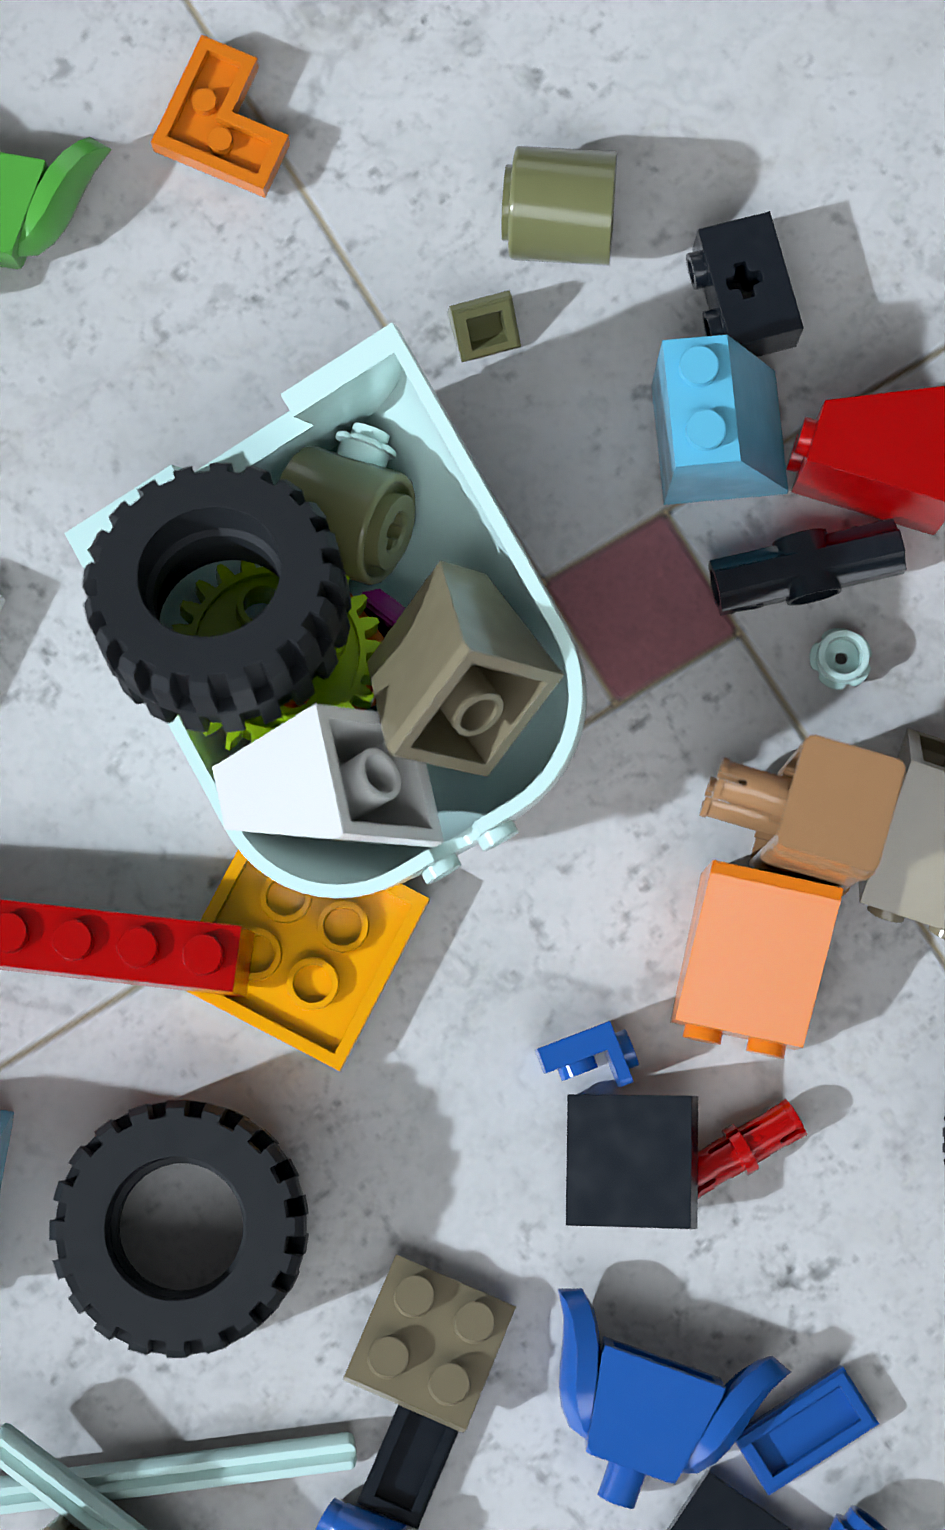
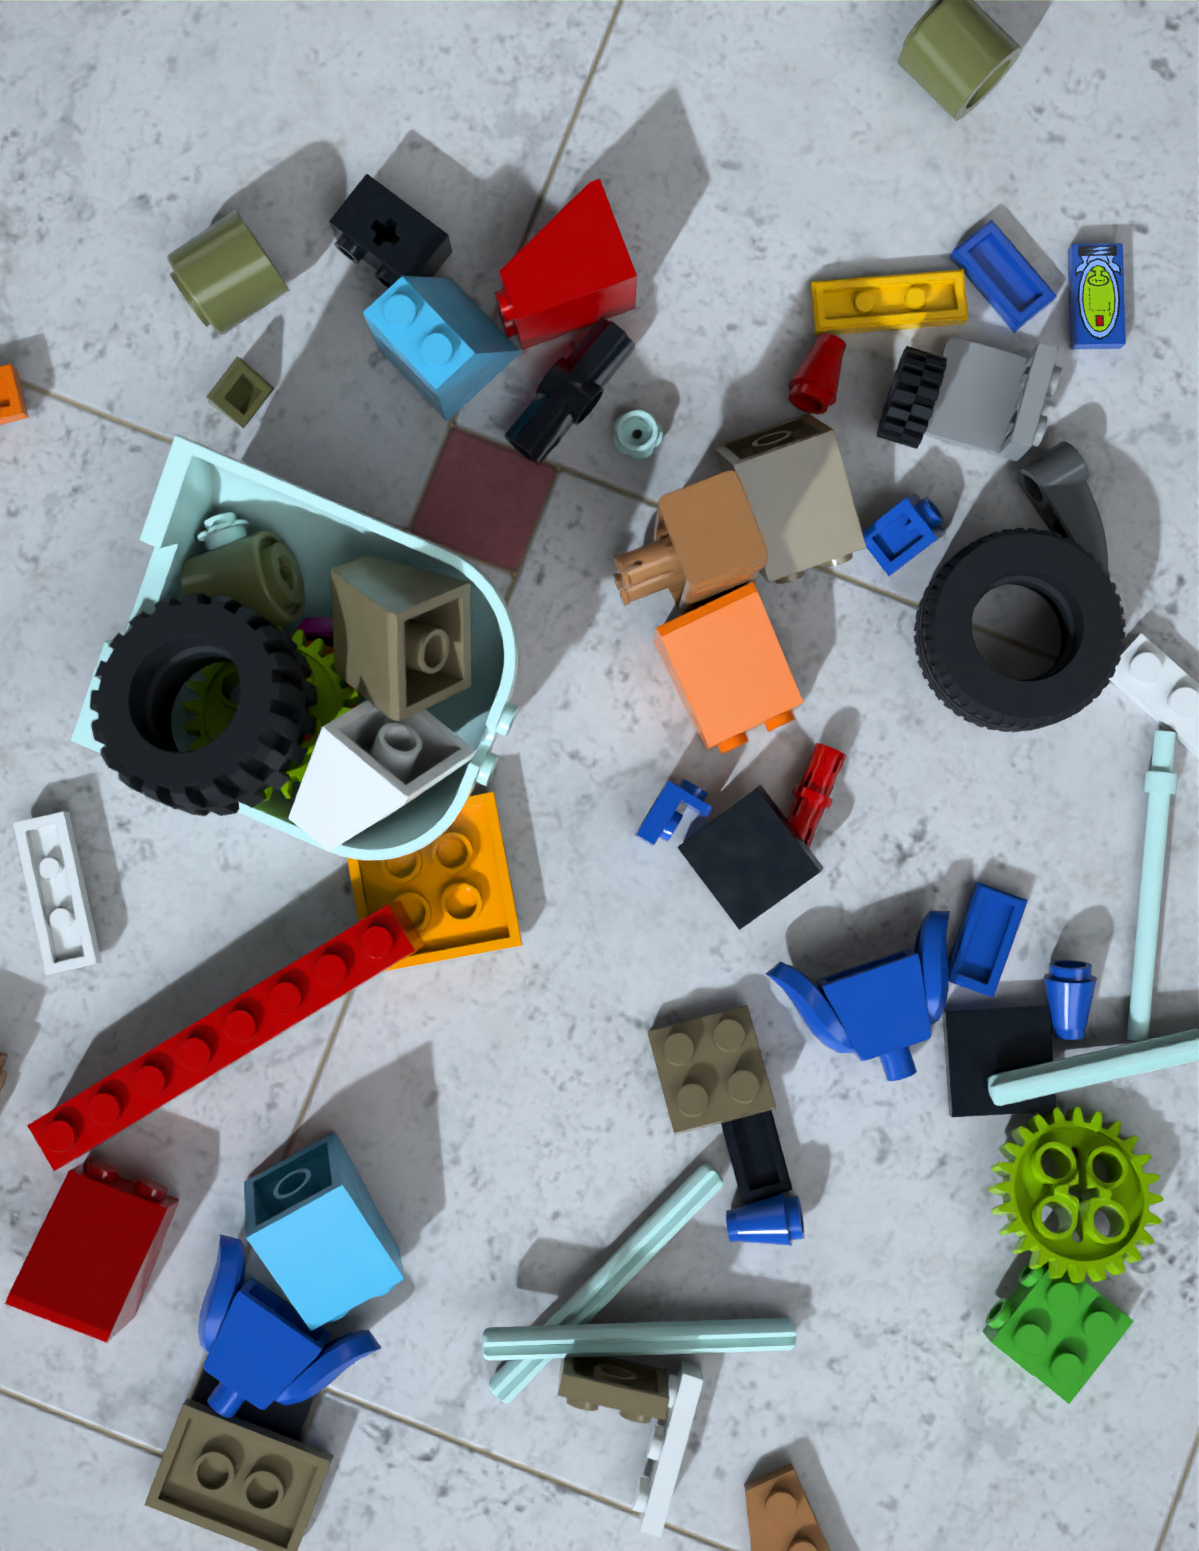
camera: 35 degrees left, 5 degrees up
(91, 1245) = (486, 1193): black tyre -> none

